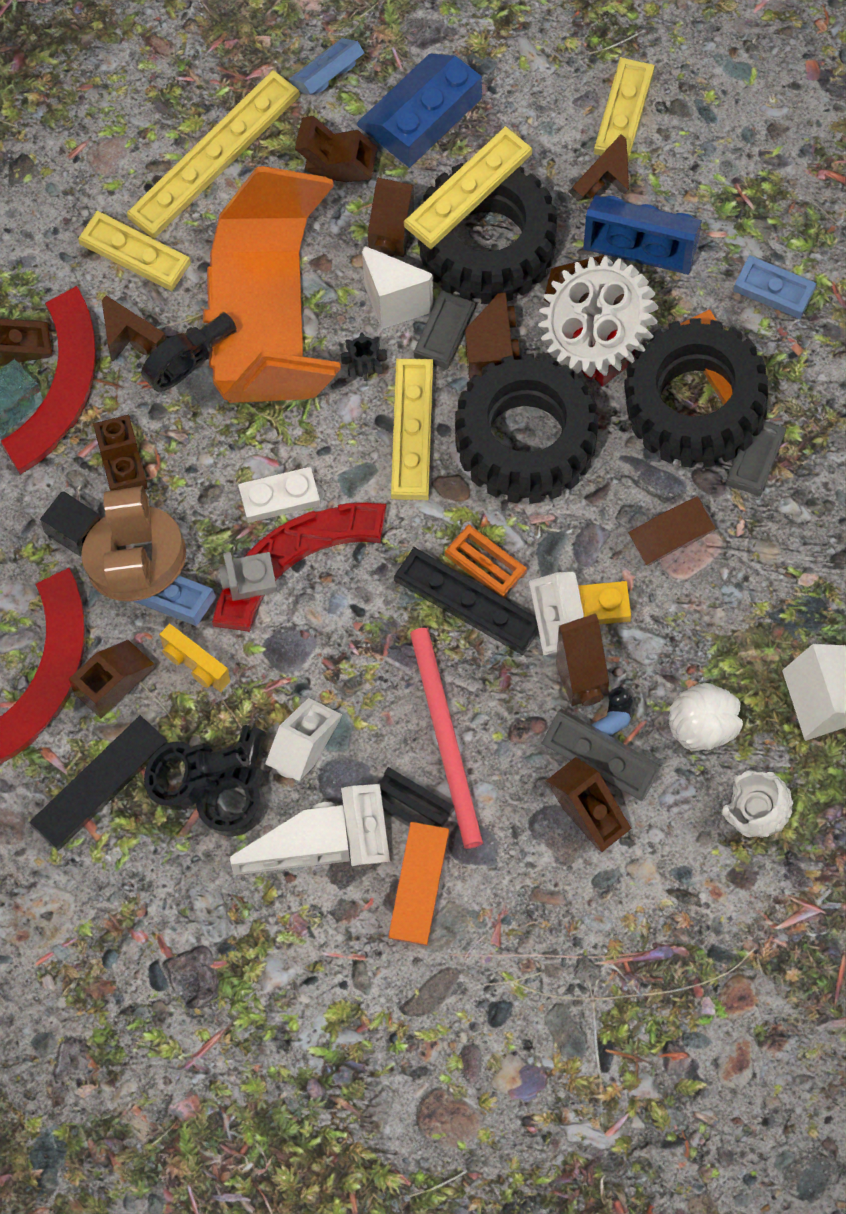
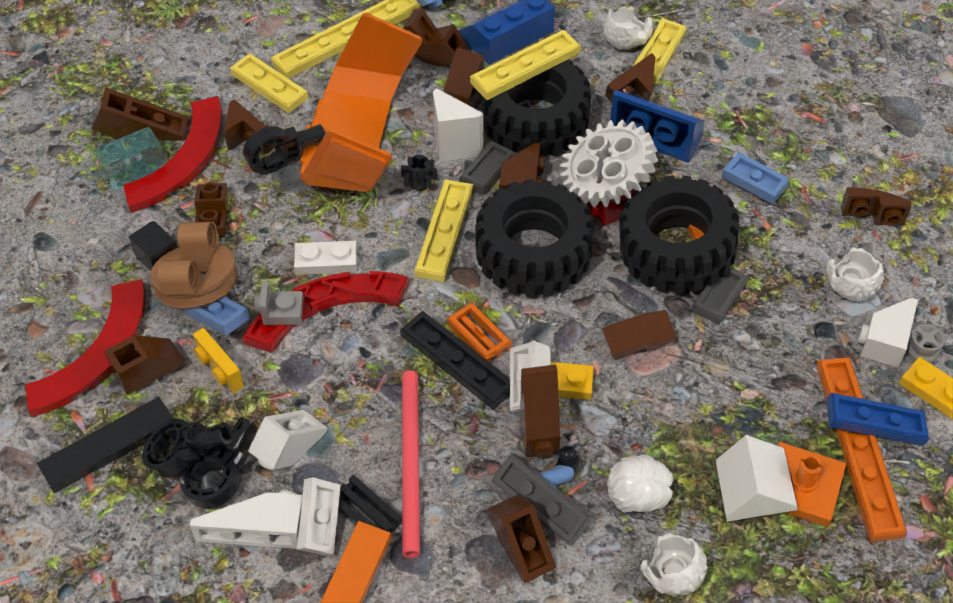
camera: 10 degrees right, 15 degrees down
(577, 87) = (625, 30): none -> white hair

